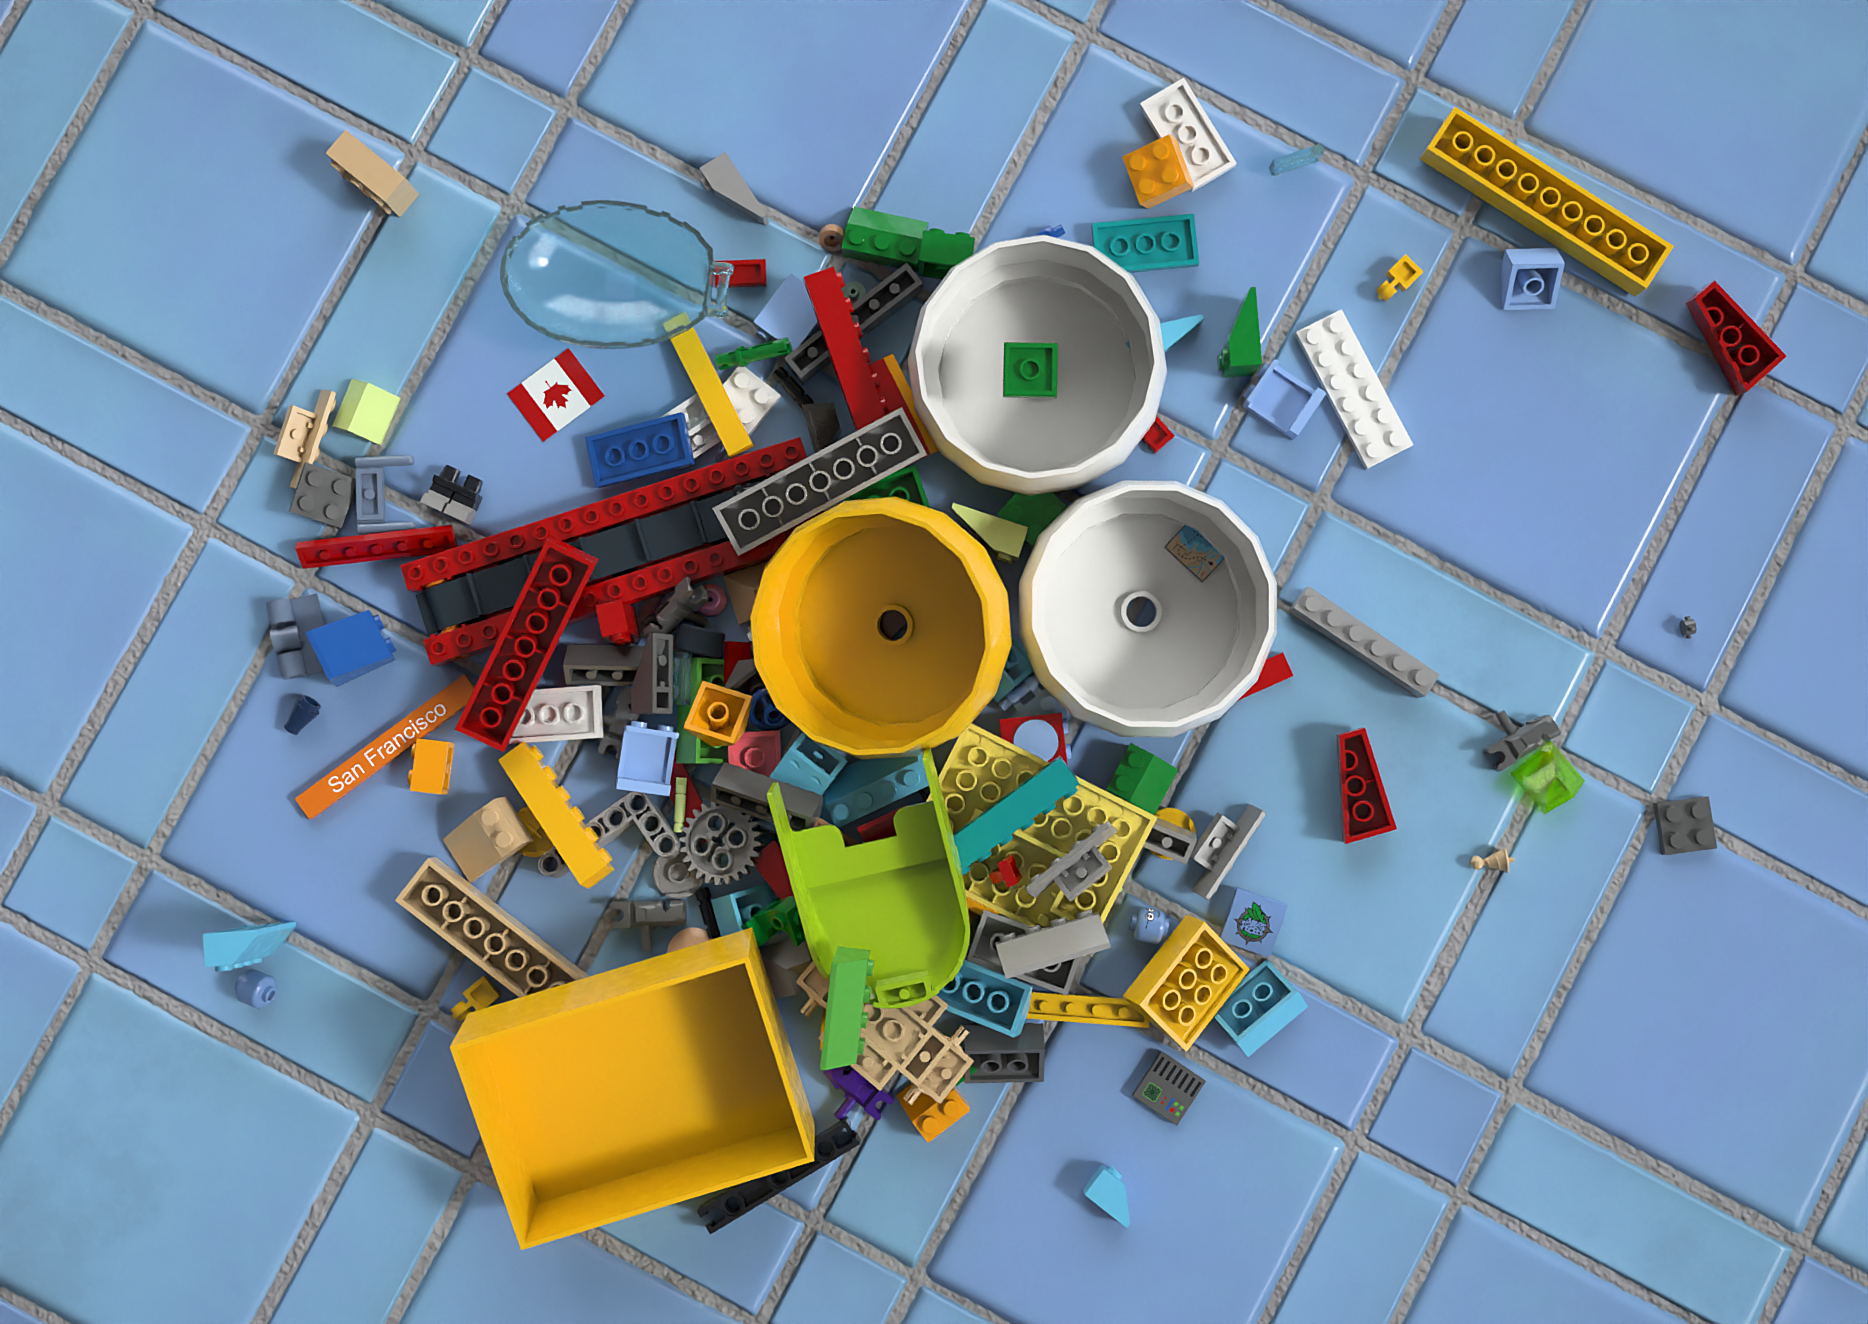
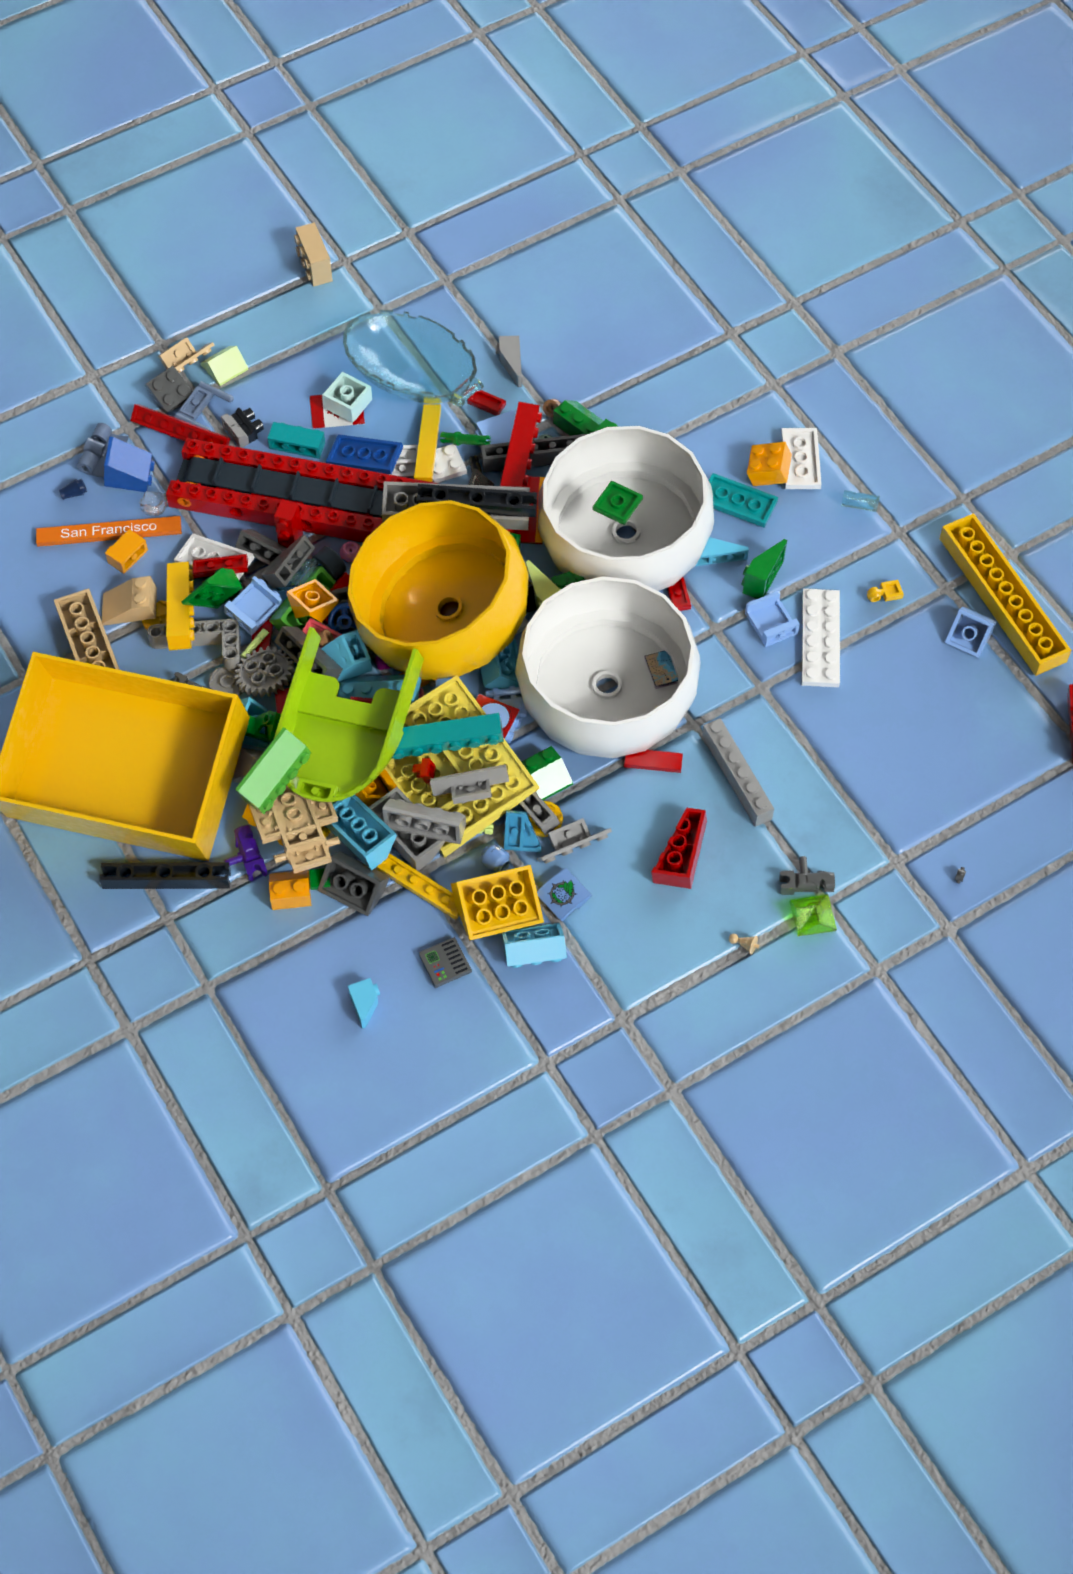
camera: 30 degrees right, 25 degrees down
(418, 677) = (153, 503): none -> clear hair
(526, 643) = (228, 504): red brick -> none
(536, 475) = (296, 440): none -> teal brick
(562, 376) = (347, 397): none -> light aqua brick
(569, 727) = (208, 566): none -> red tile
(583, 769) = (215, 590): none -> green slope
(678, 609) = (330, 538): dark grey piece -> none
(768, 755) = (326, 637): none -> medium nougat tile
(868, 461) = (491, 502): none -> black piece
(1160, 877) = (520, 833): none -> dark azure wing
(1685, 825) = (889, 991): dark grey plate -> none

